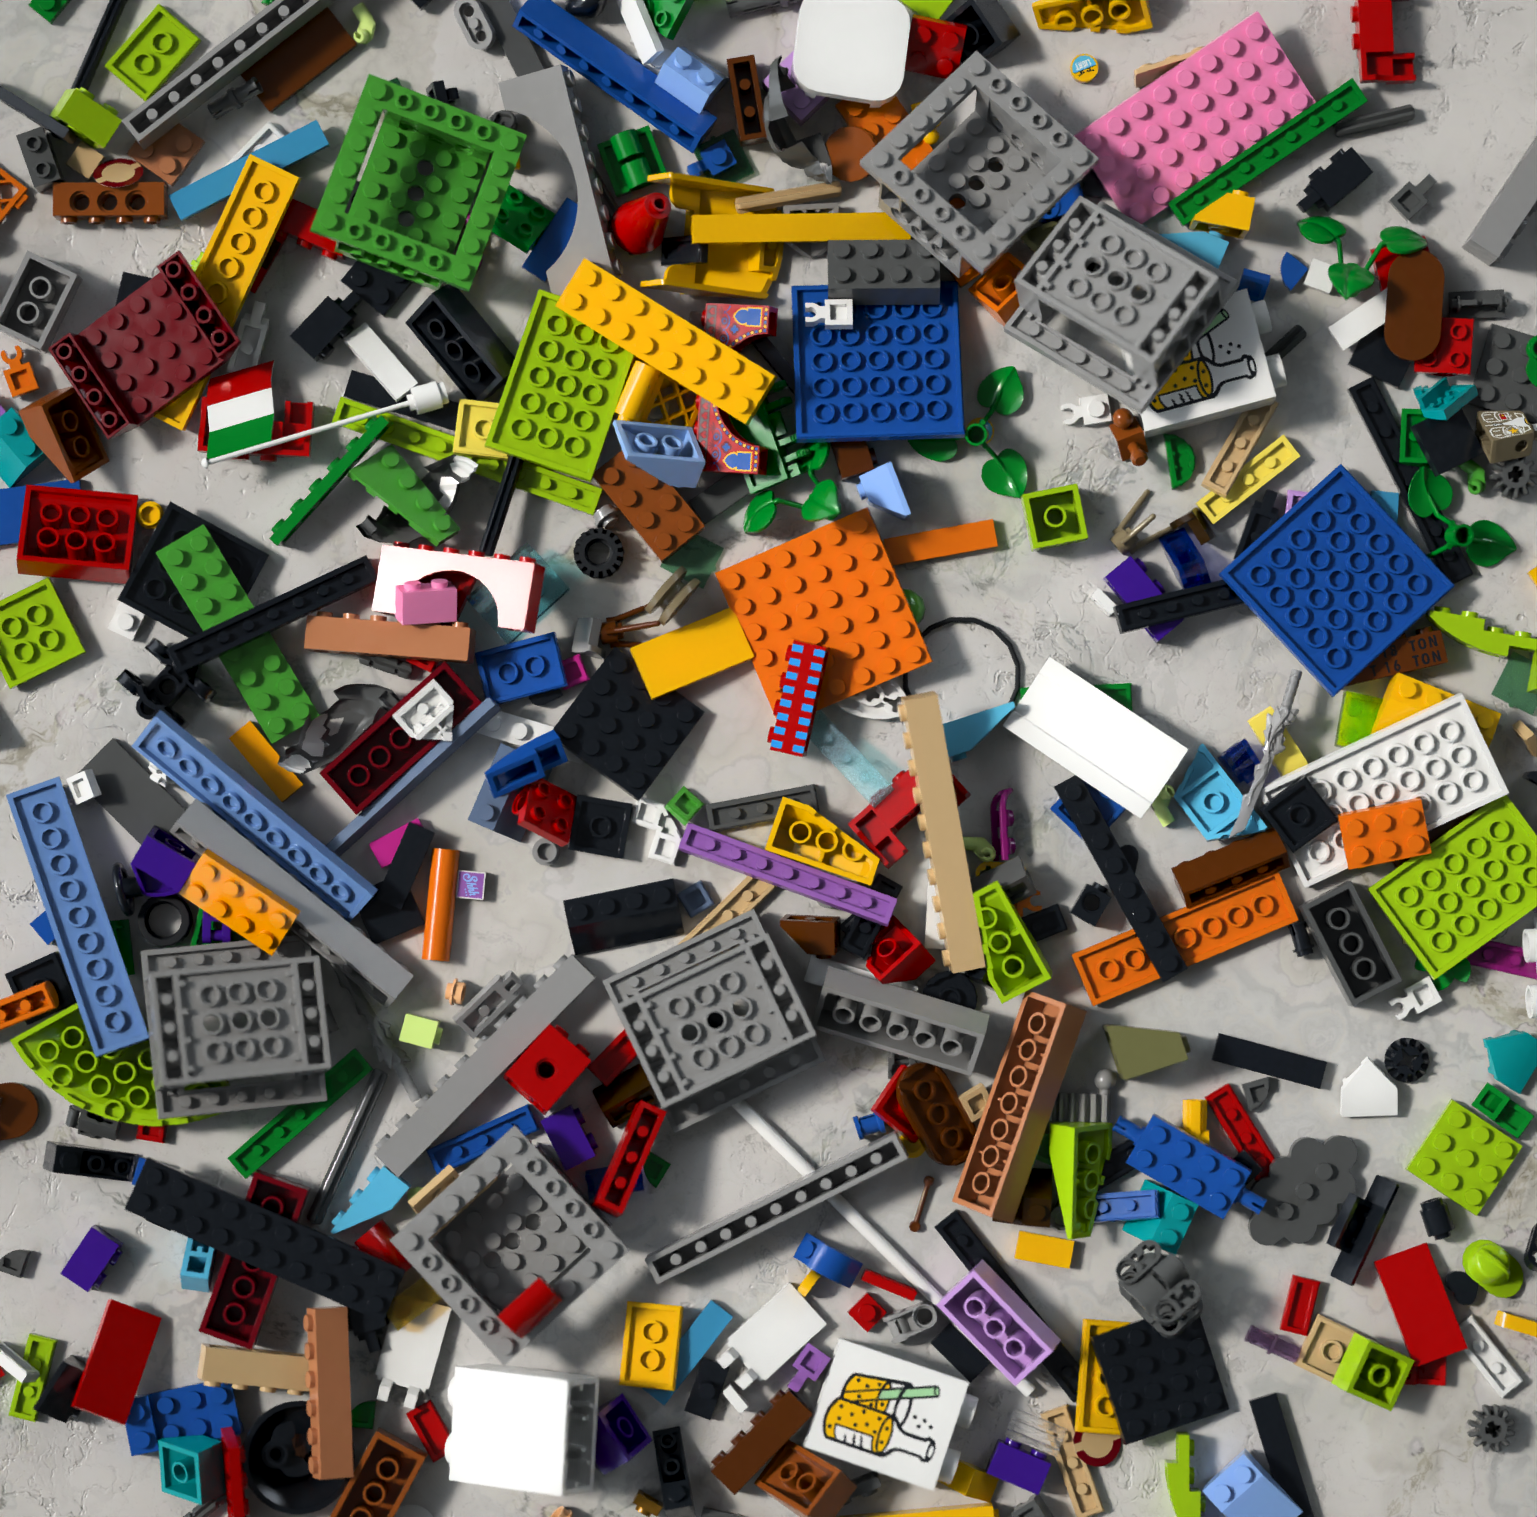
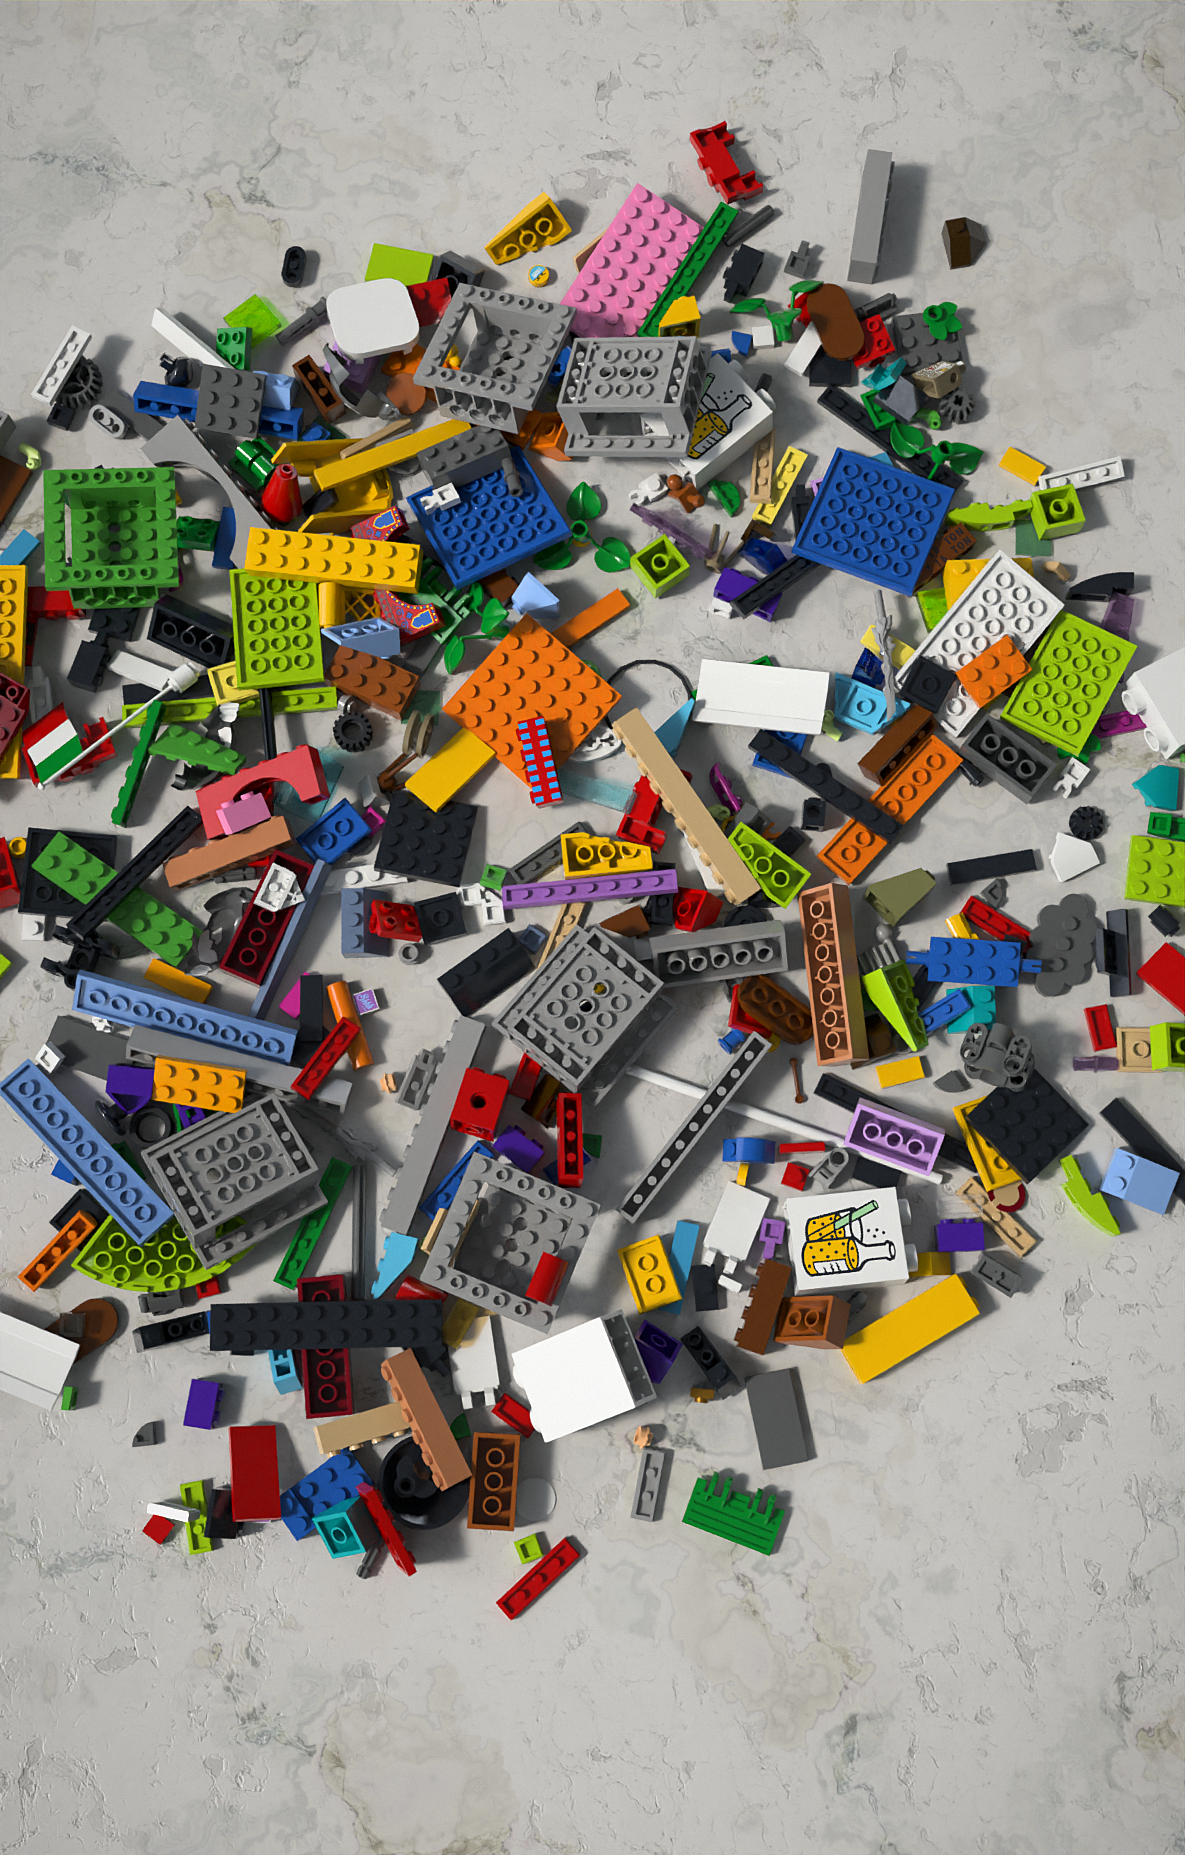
camera: 25 degrees left, 10 degrees down
(396, 935) = (325, 1058): none -> red tile
(421, 1031) = (375, 1122): yellowish green brick -> none
(526, 764) = (366, 893): blue slope -> none
(631, 76) = (230, 401): none -> dark grey plate
(927, 326) = (512, 477): none -> dark grey pin
(974, 1101) = (799, 988): tan plate -> none
(1088, 480) = (682, 539): none -> clear purple wing
(1094, 1288) = (949, 1083): none -> dark grey tile

